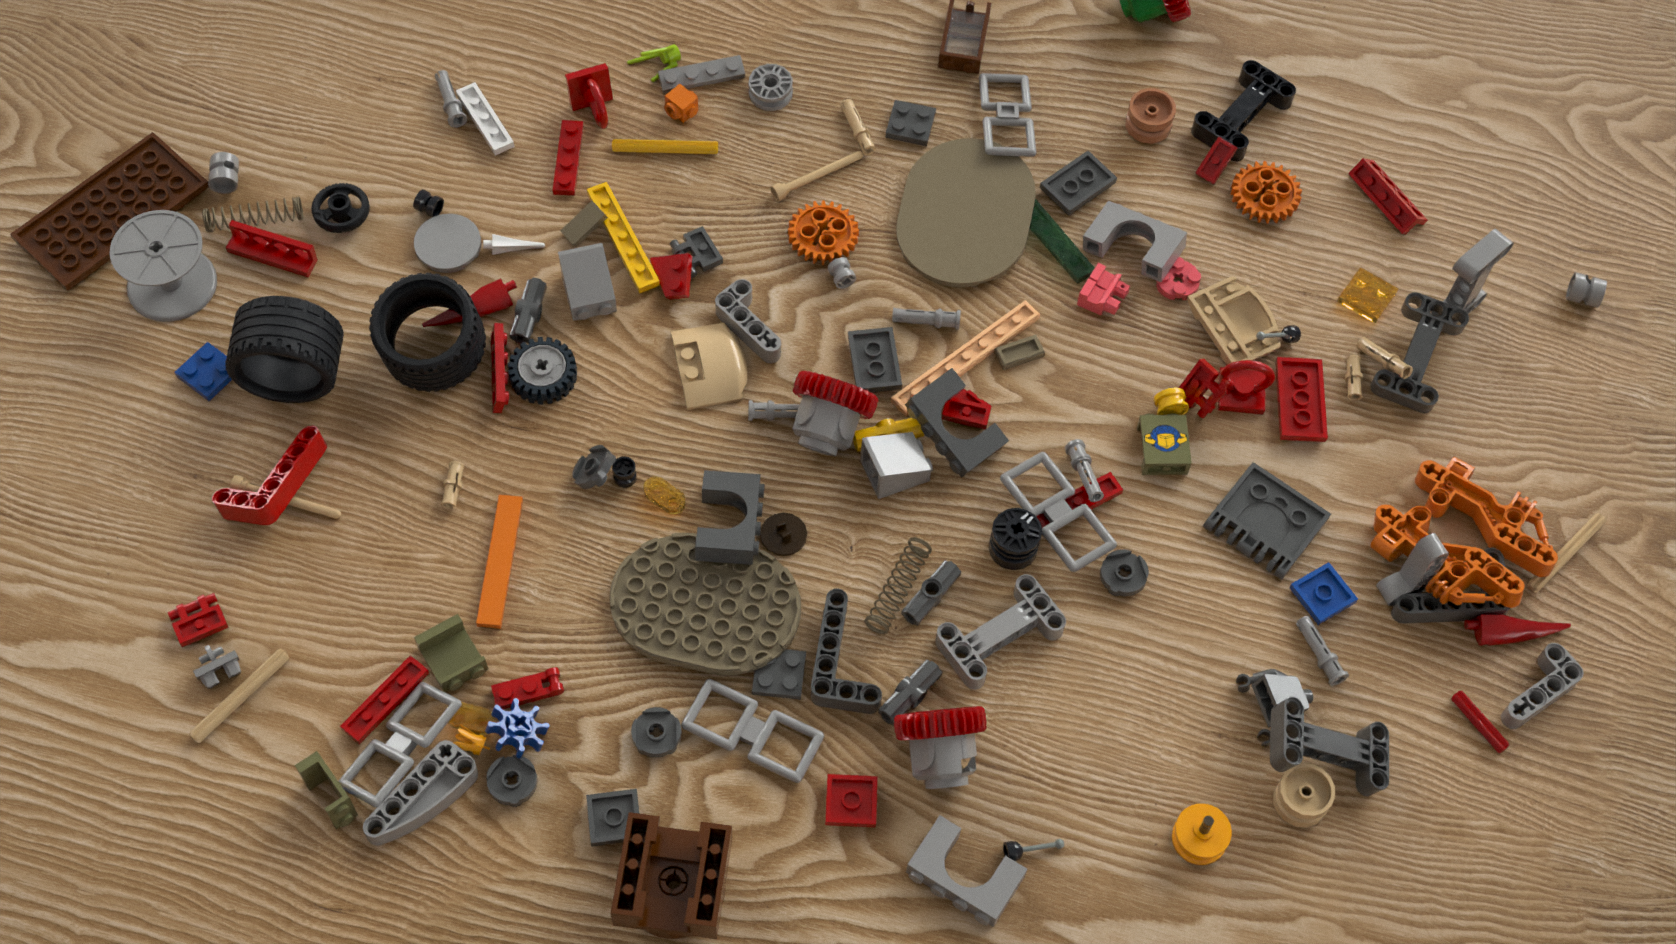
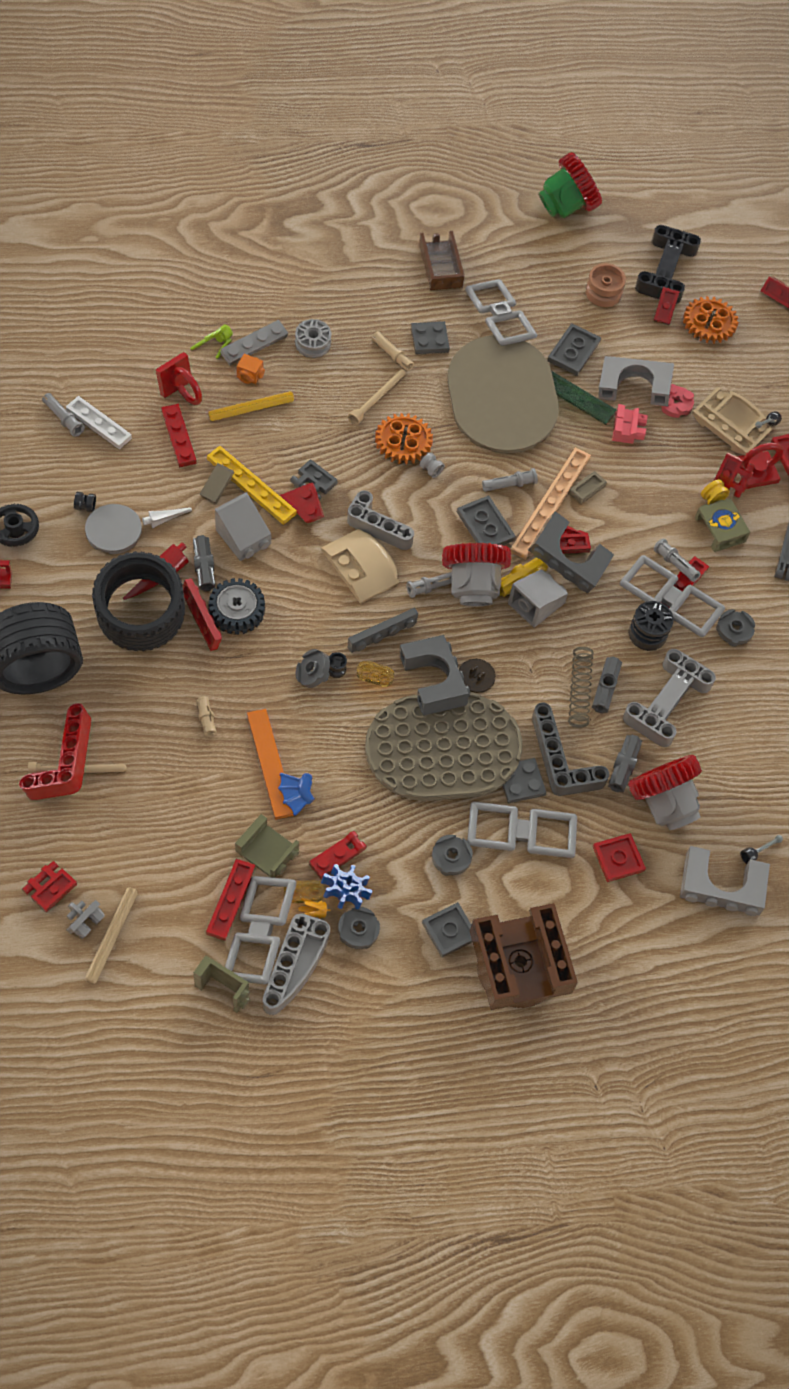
camera: 25 degrees left, 0 degrees up
(512, 601) = (296, 791): none -> blue arm
(695, 447) = (378, 632): none -> dark grey plate

